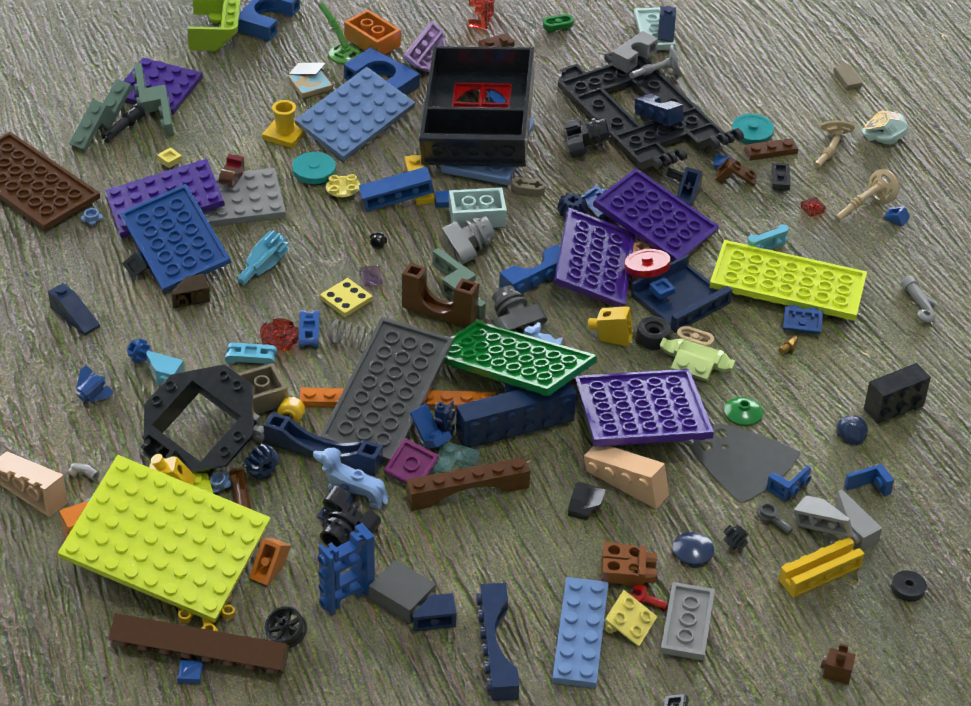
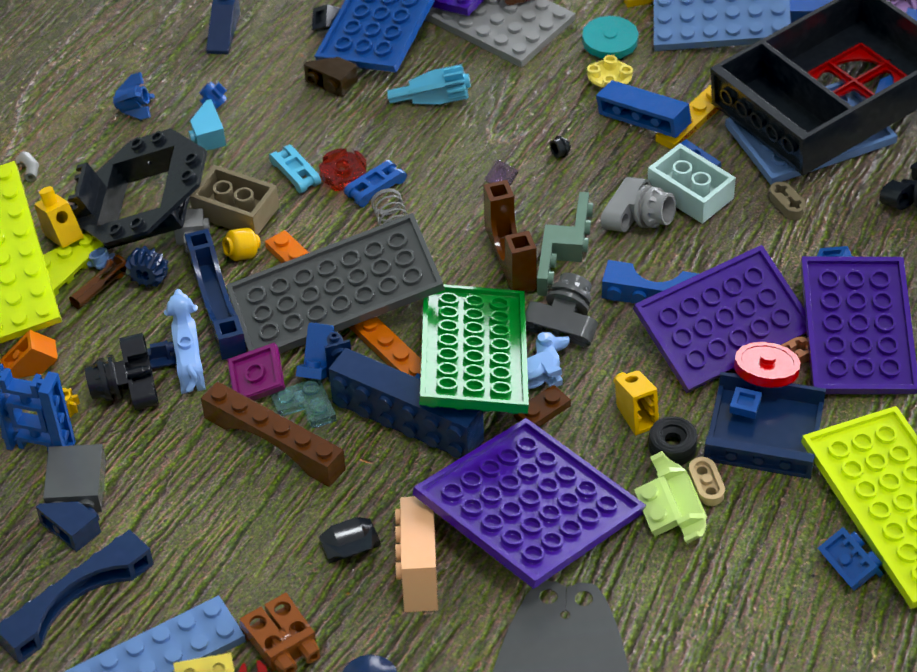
camera: 55 degrees right, 5 degrees up
(346, 297) = (451, 180): light yellow tile -> none
(572, 201) = (791, 249): dark blue gear -> none
(743, 411) = (640, 605): green dish -> none
(789, 345) = (799, 572): pearl gold bar -> none

